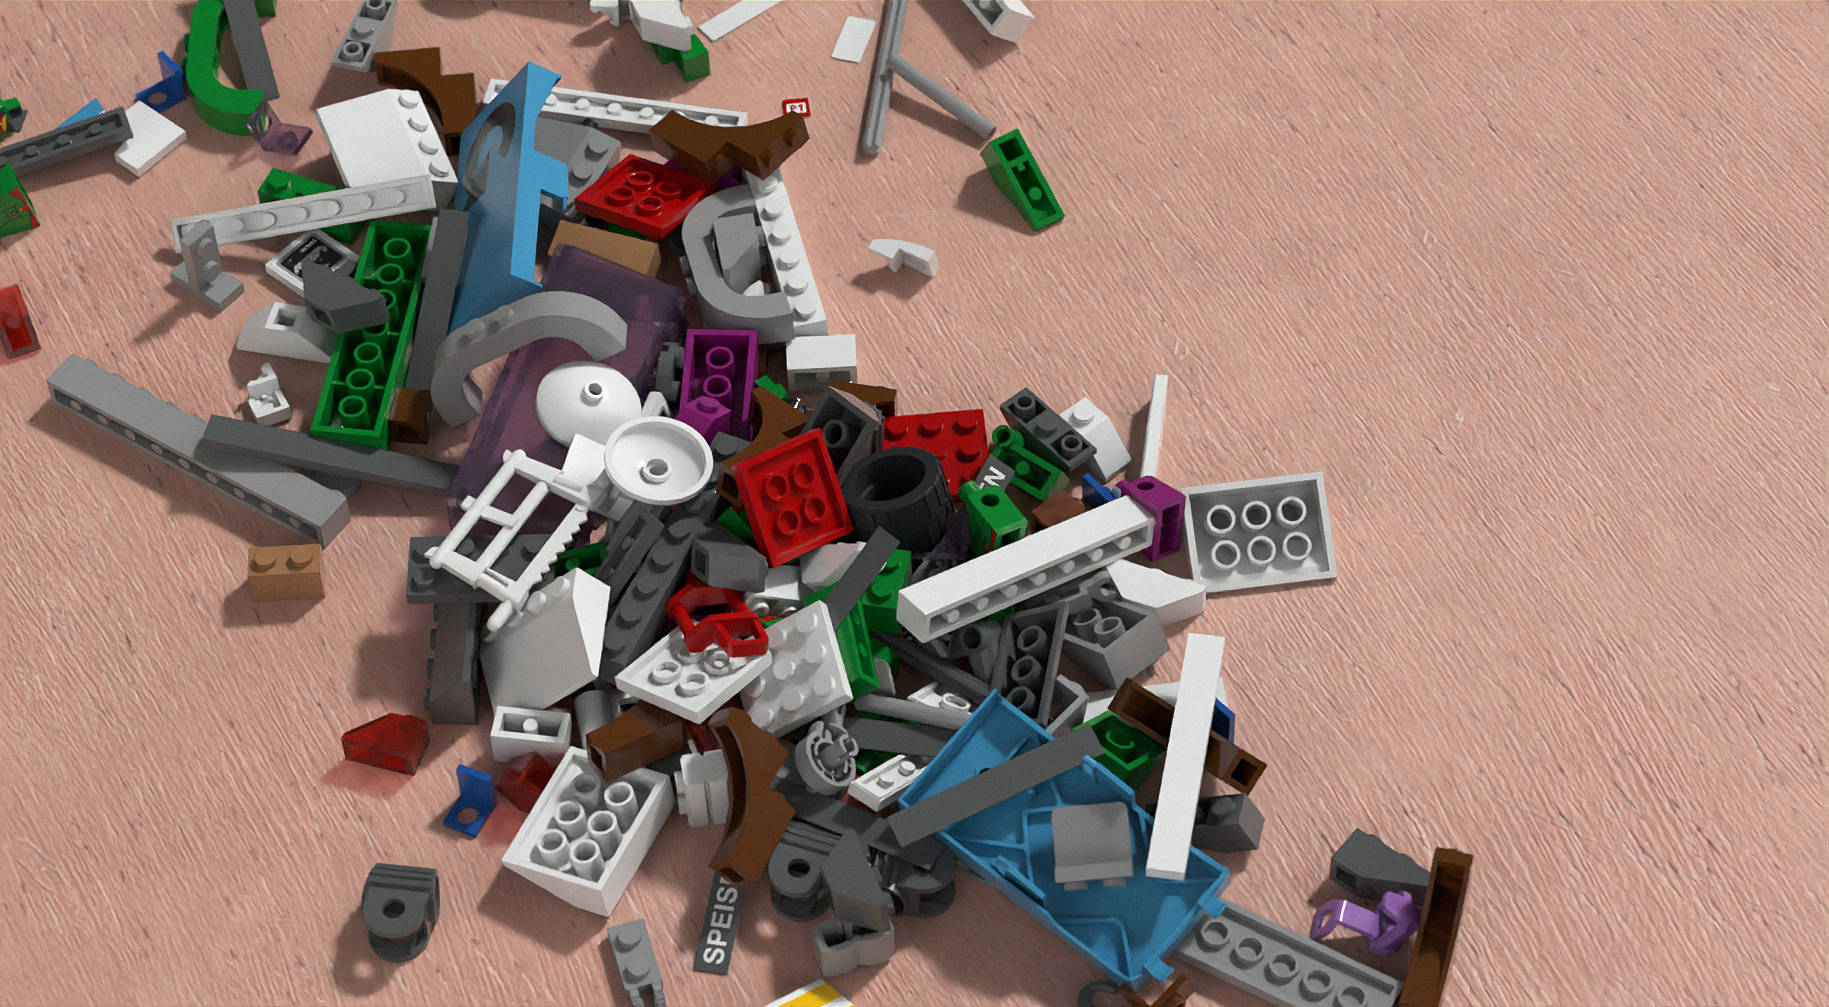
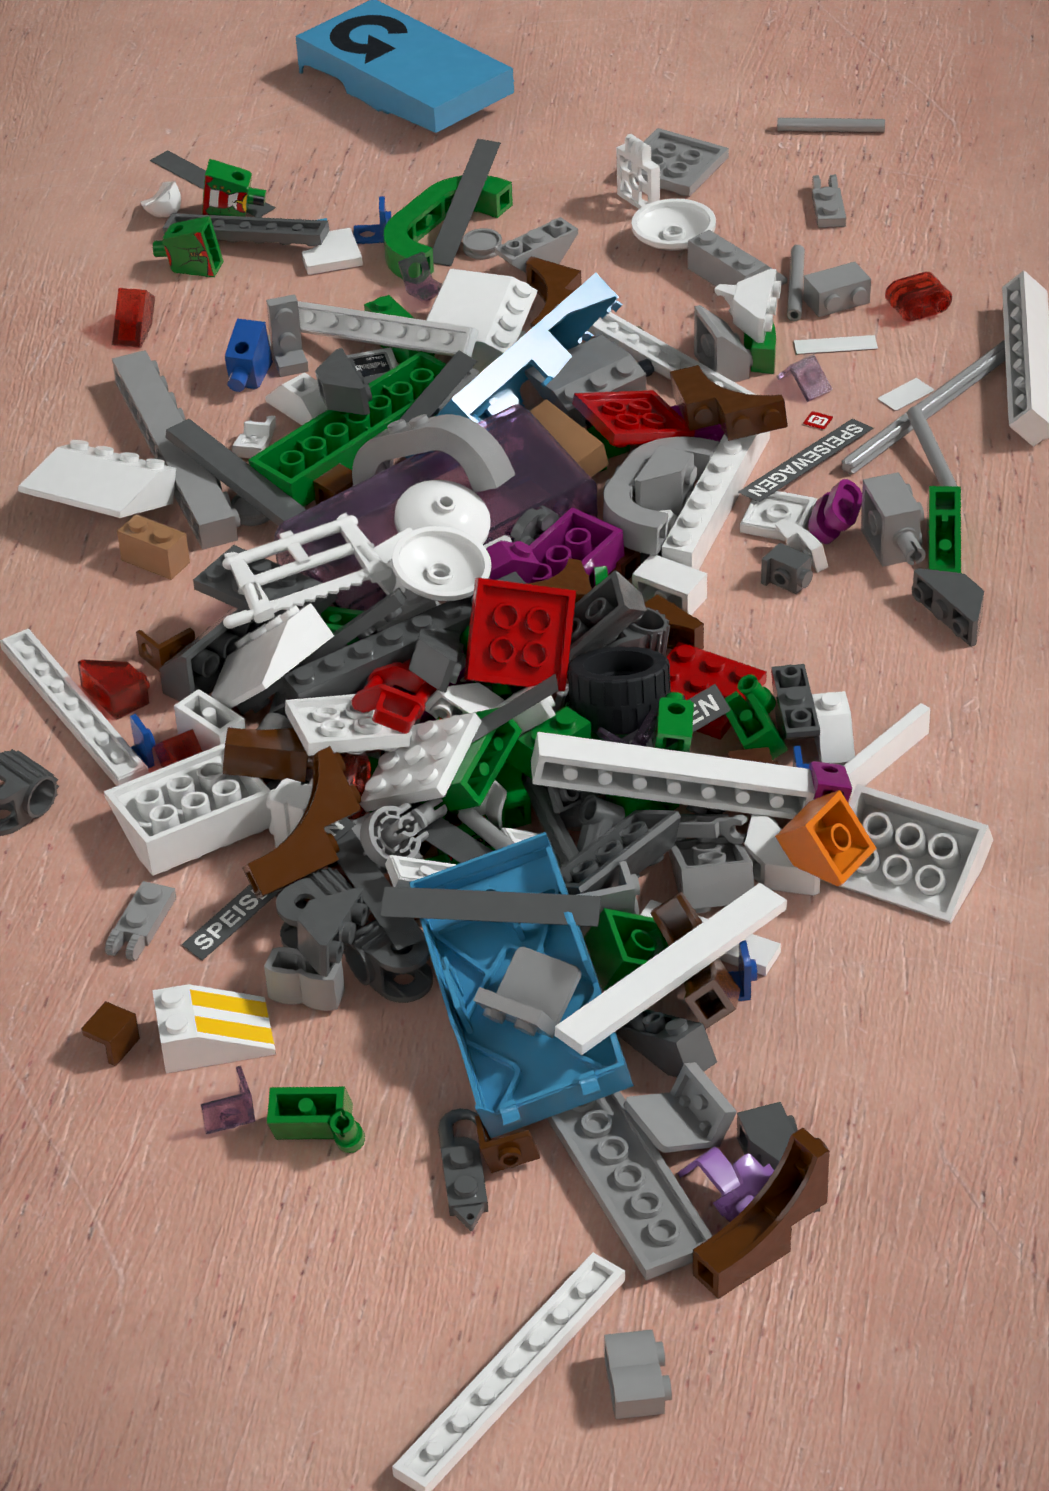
camera: 35 degrees right, 10 degrees down
(175, 529) = (102, 480): none -> white slope
(188, 315) = (248, 355): none -> blue torso
(292, 56) = (481, 243): none -> light grey piece
(365, 786) = (73, 707): none -> white tile
(406, 687) = (164, 651): none -> reddish brown bracket
(647, 74) = (719, 346): none -> light grey slope
(754, 63) = (808, 377): none -> bracket
(826, 160) = (805, 460): none -> dark grey sticker
(847, 232) = (763, 515): none -> white tile
(911, 206) = (835, 511): none -> magenta brick
(914, 289) = (786, 568): none -> dark grey brick
(975, 193) = (892, 520): none -> light grey brick
(1089, 250) = (952, 600): none -> dark grey slope
(1196, 557) = (826, 839): none -> orange slope
(1283, 881) = (687, 1117): none -> light grey bracket

